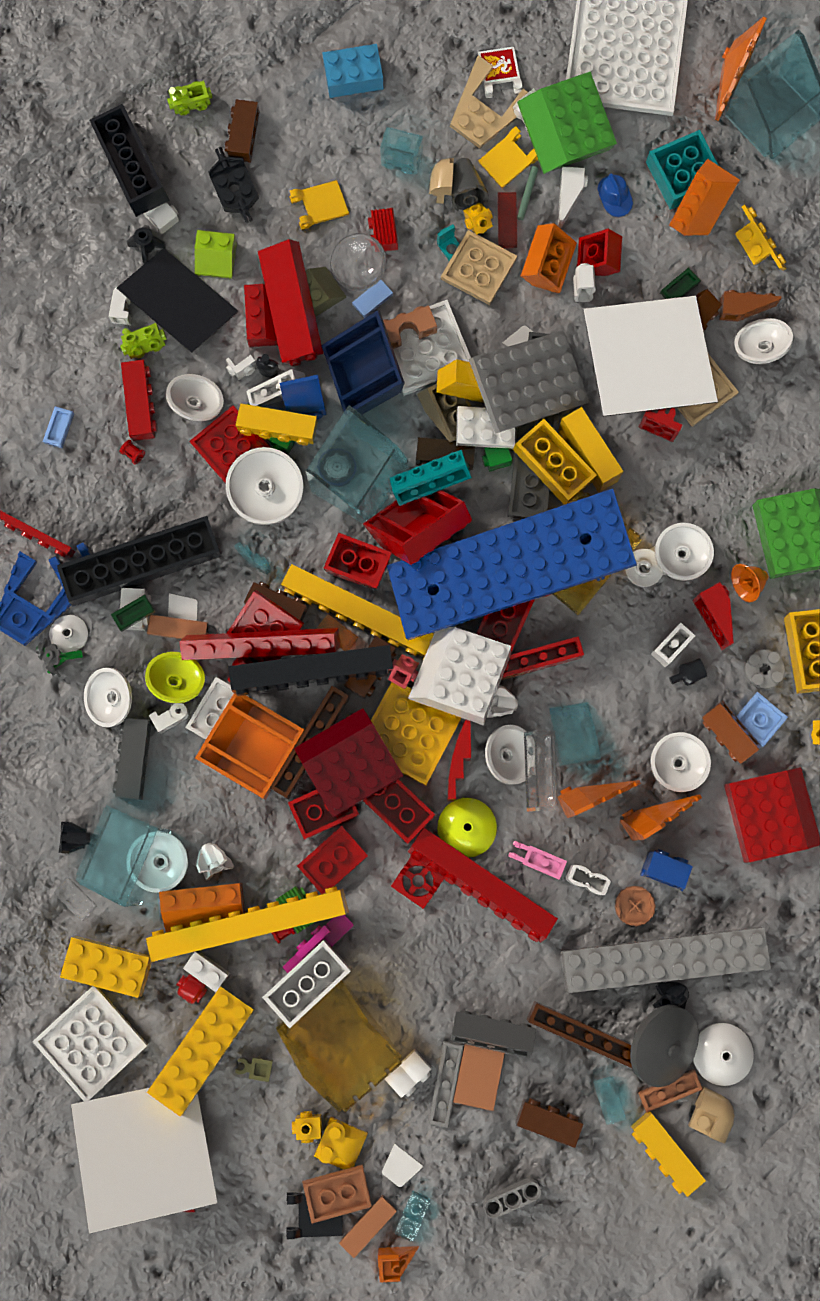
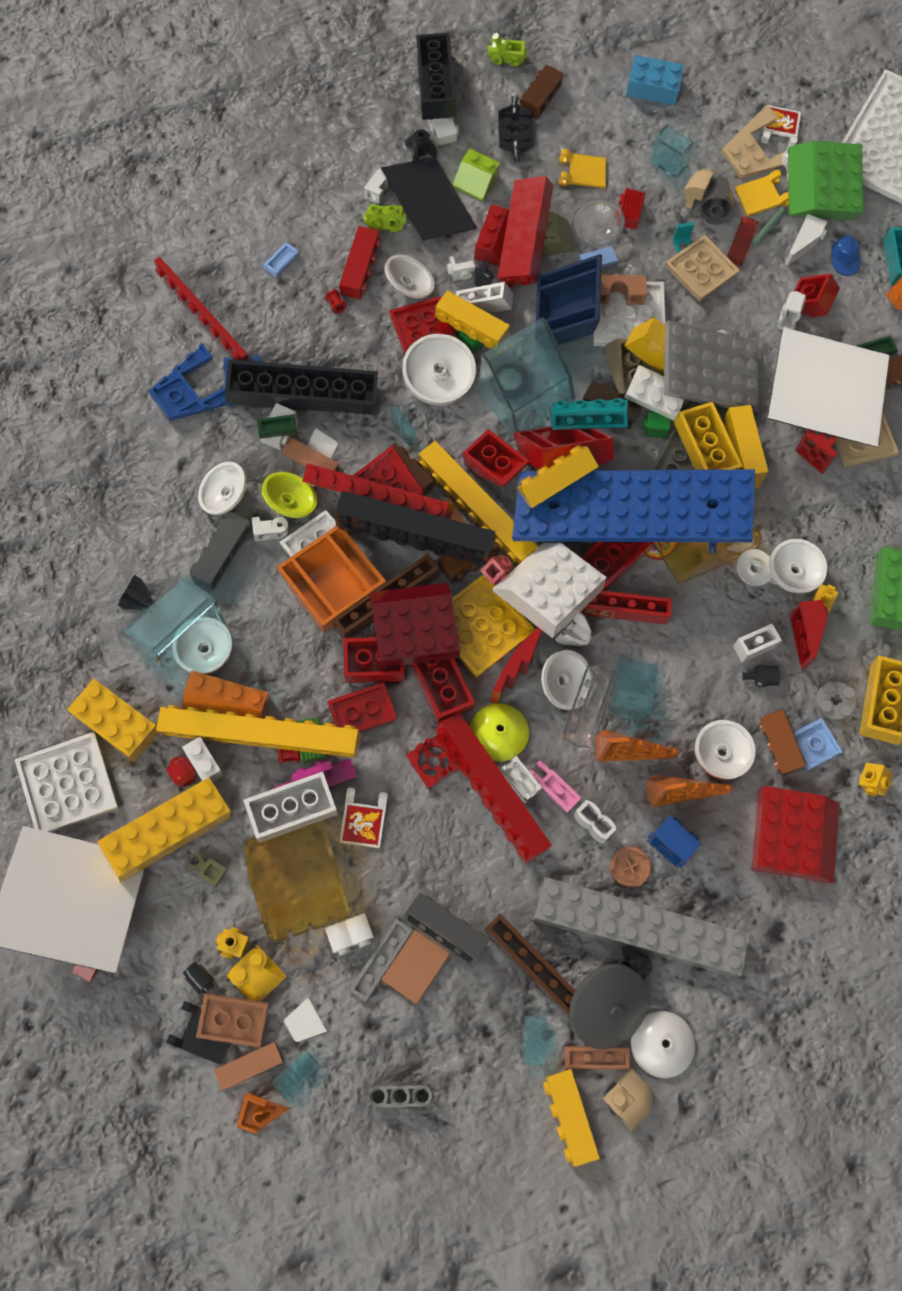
camera: 15 degrees right, 10 degrees down
(52, 656) = (189, 433): dark grey plant -> none
(77, 637) = (212, 434): white dish -> none
(212, 860) = (252, 665): white brick -> none
(291, 1169) = (199, 978): none -> black brick
(303, 396) = (506, 304): blue slope -> none
(377, 965) = (363, 823): none -> flag
(426, 565) = (557, 476): none -> yellow brick
(478, 218) = (715, 223): yellow brick -> none
(504, 867) = (521, 780): none -> white hinge
(548, 258) = (767, 282): orange slope -> none
(549, 1122) = (467, 1037): reddish brown brick -> none
(718, 572) = (827, 594): none -> yellow brick
(748, 581) = (849, 615): orange hat -> none

